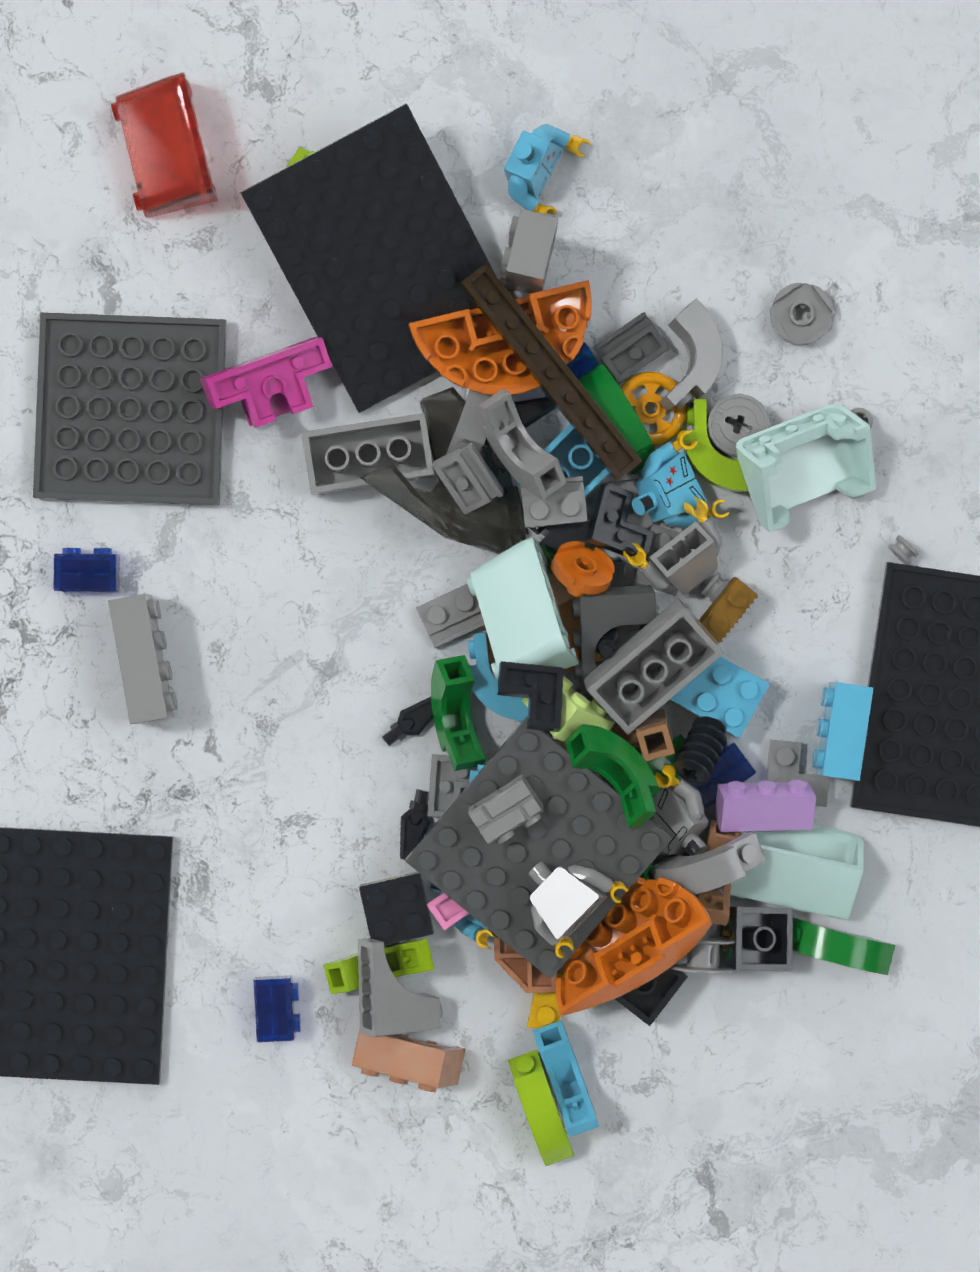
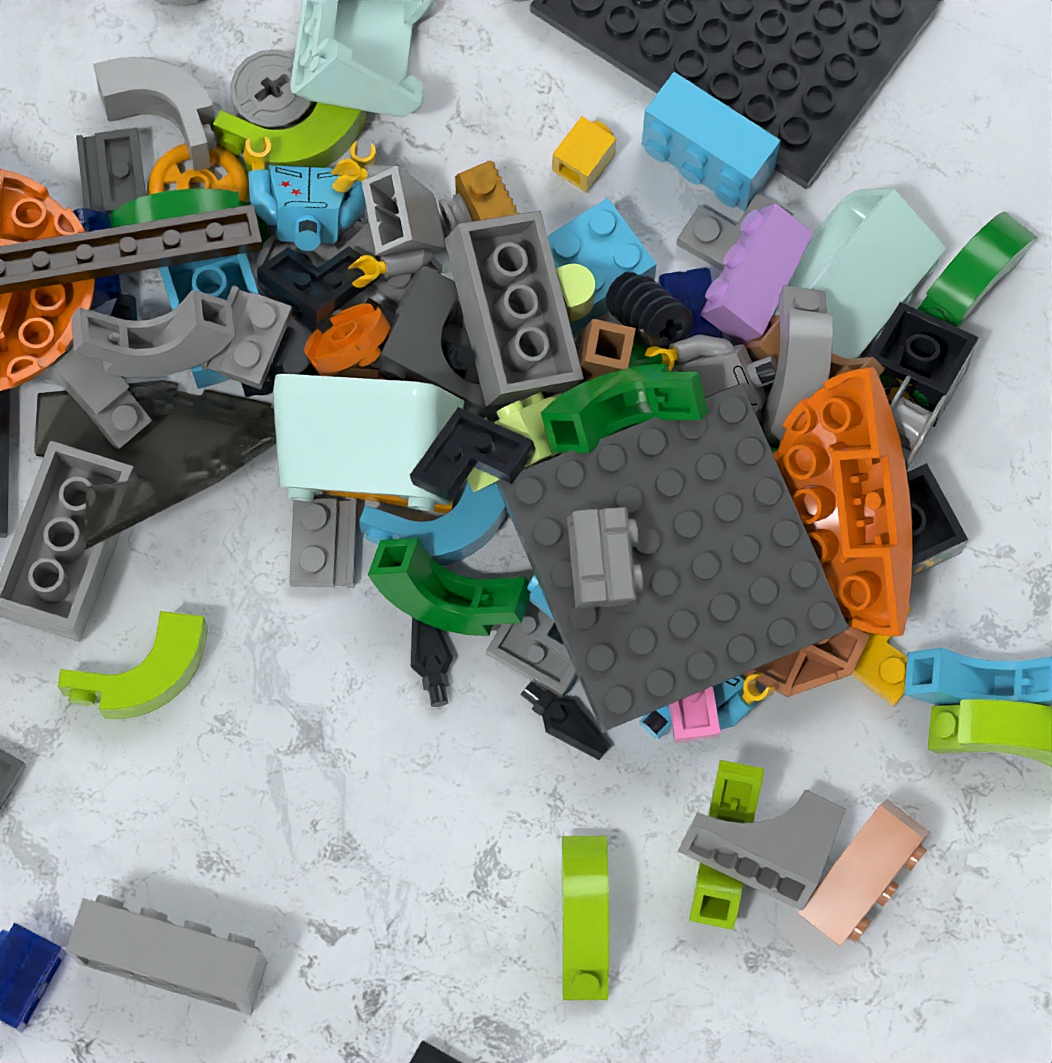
camera: 70 degrees left, 15 degrees down
(275, 1008) = (718, 1014): clear blue brick -> none
(295, 899) = (585, 918): none -> lime arch
(319, 561) = (154, 681): none -> lime arch
(396, 908) = (661, 789): black brick -> none
(468, 478) = (159, 429): light grey plate -> none
(567, 900) = (757, 543): torso -> none
(688, 699) = (577, 290): none -> yellowish green brick
(800, 650) = (584, 153): none -> yellow brick

